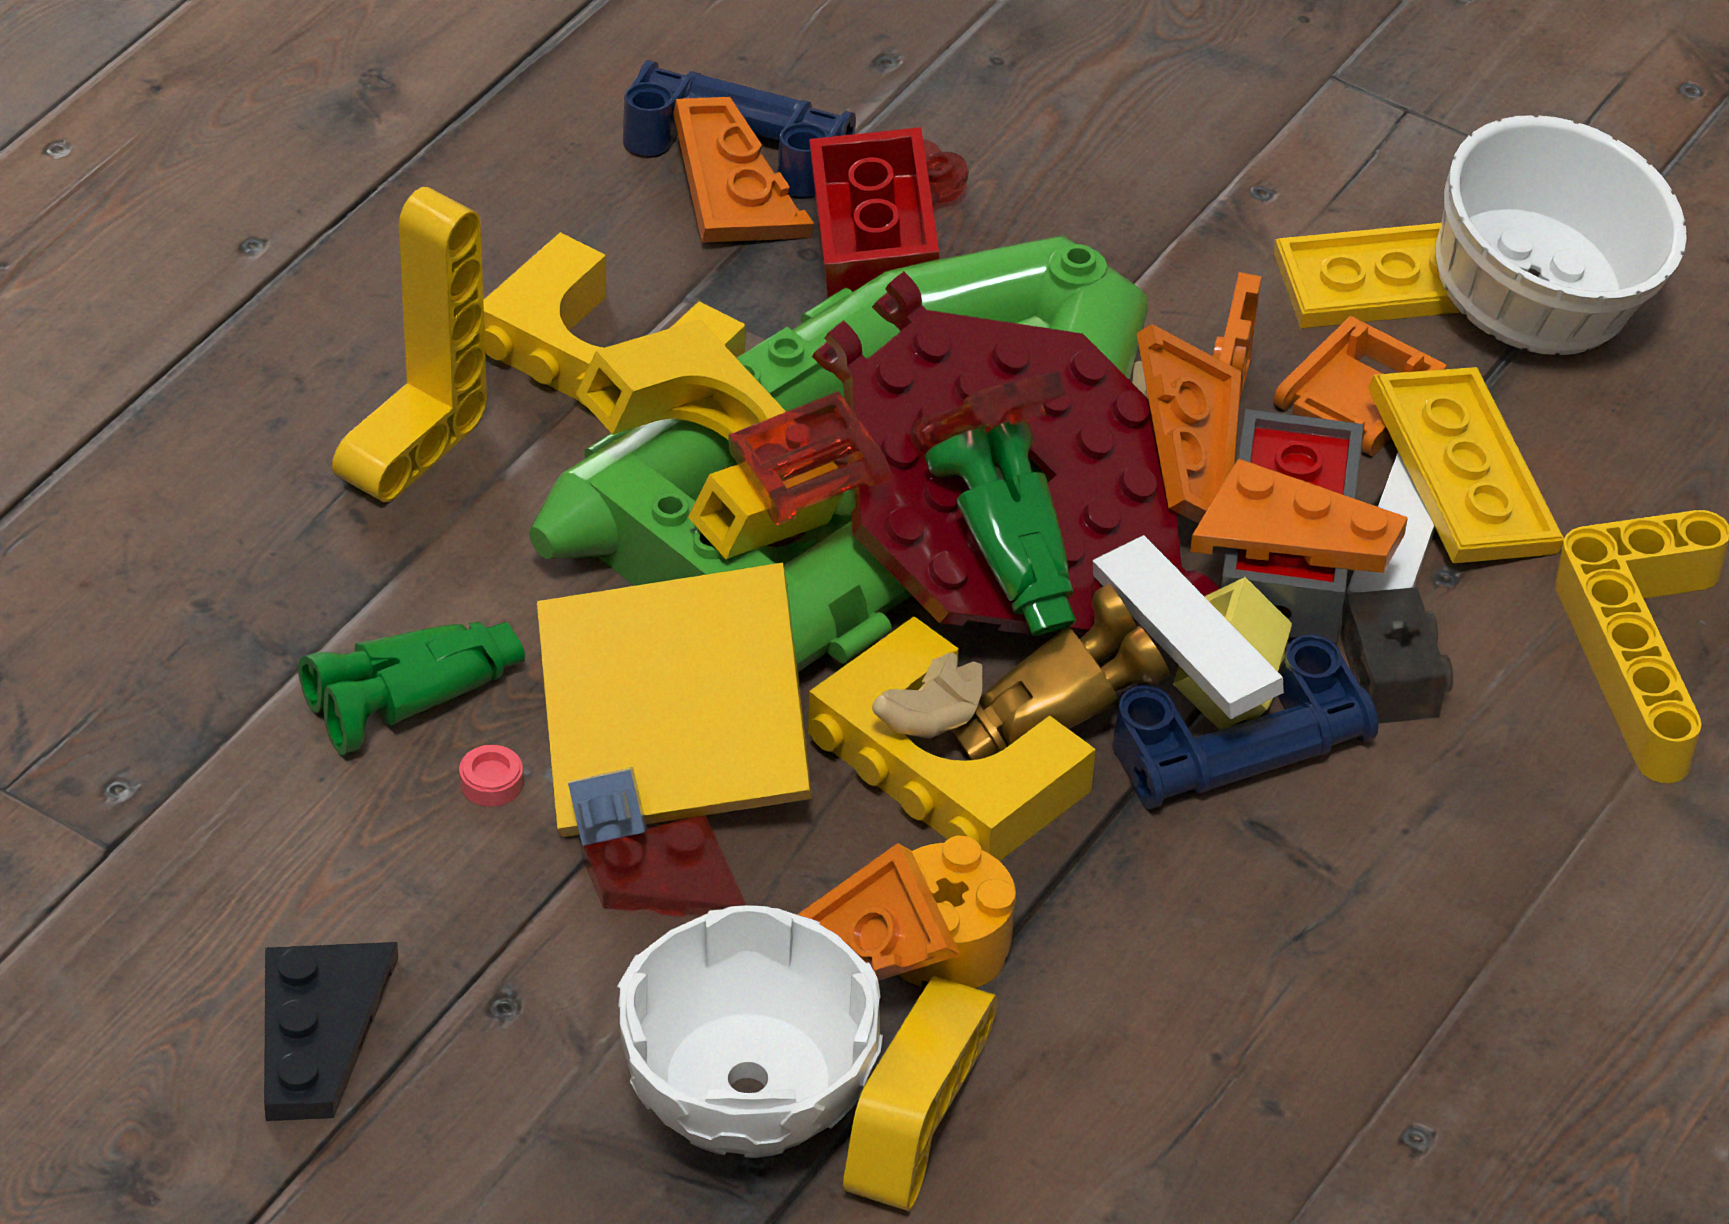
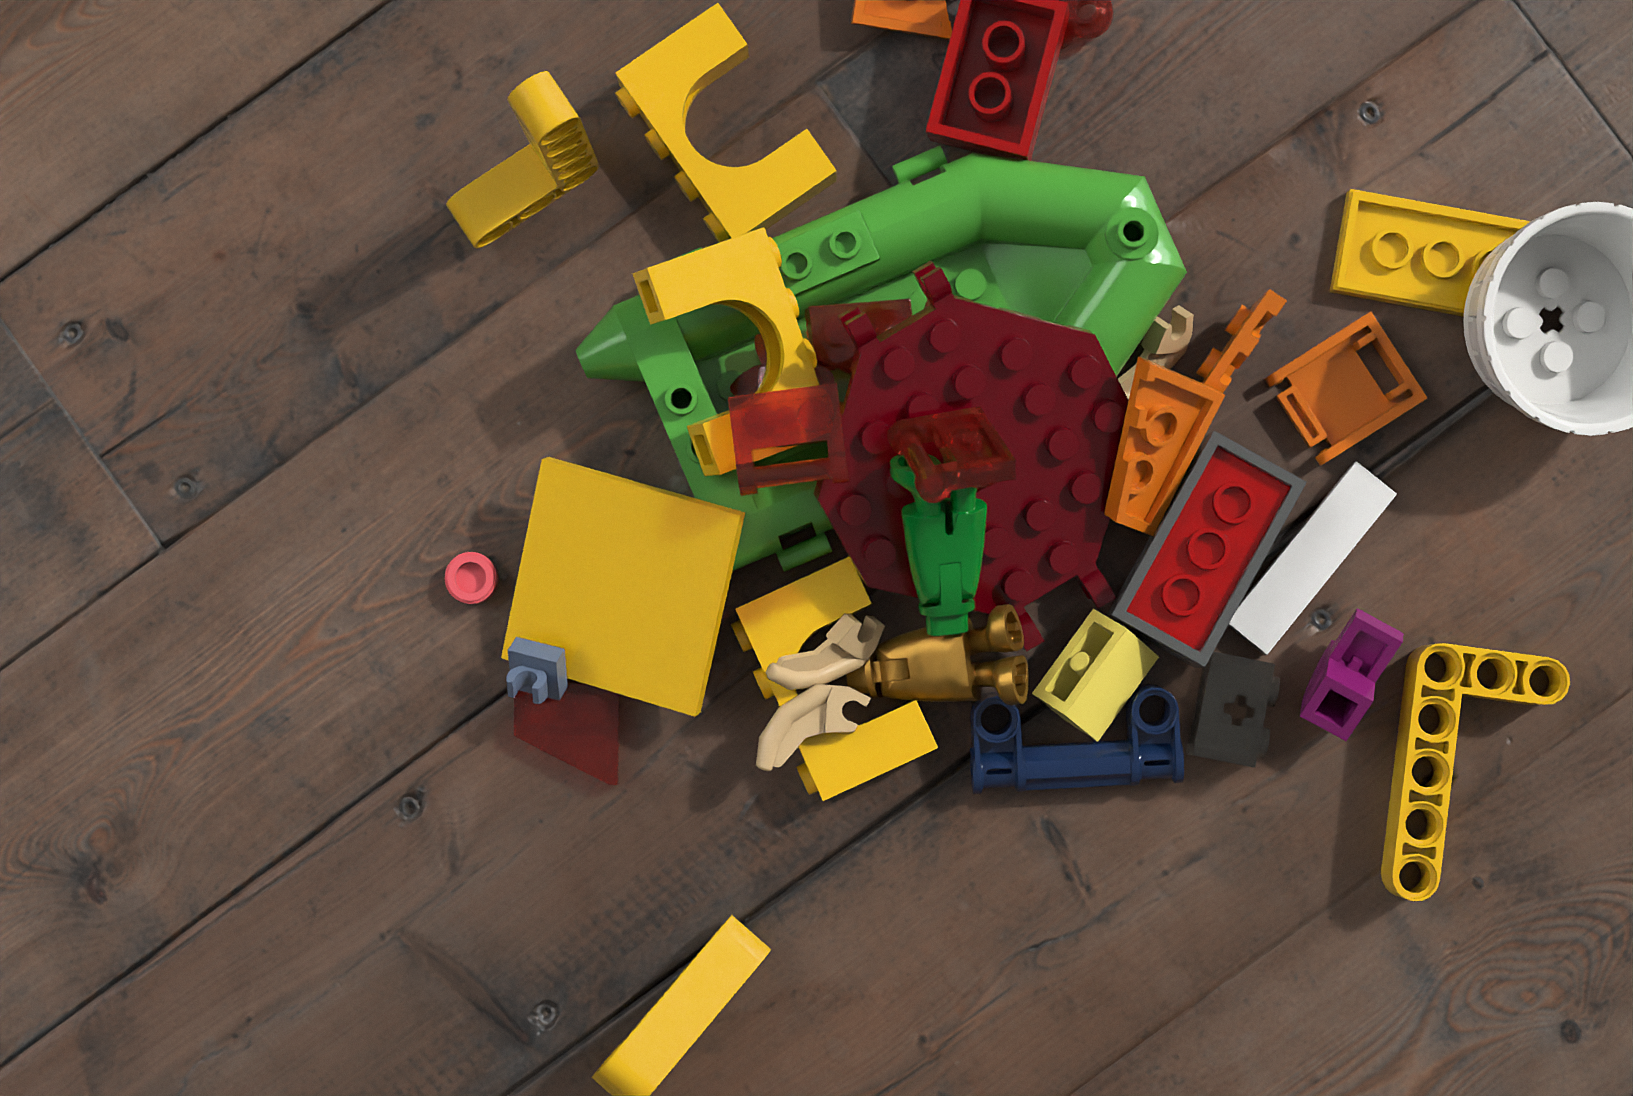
camera: 25 degrees right, 40 degrees up
(315, 1022) = (261, 781): black wing -> none
(403, 675) = (437, 461): green piece -> none
(755, 1001) = (510, 990): white piece -> none
(887, 915) = (676, 878): orange wing -> none
(939, 747) = (806, 715): none -> tan piece
(977, 906) = (744, 886): light orange brick -> none
(1188, 627) = (1053, 672): white tile -> none
(1290, 516) = (1193, 581): orange wing -> none
(1465, 465) = (1388, 517): yellow tile -> none
(1501, 578) = (1347, 674): none -> magenta brick

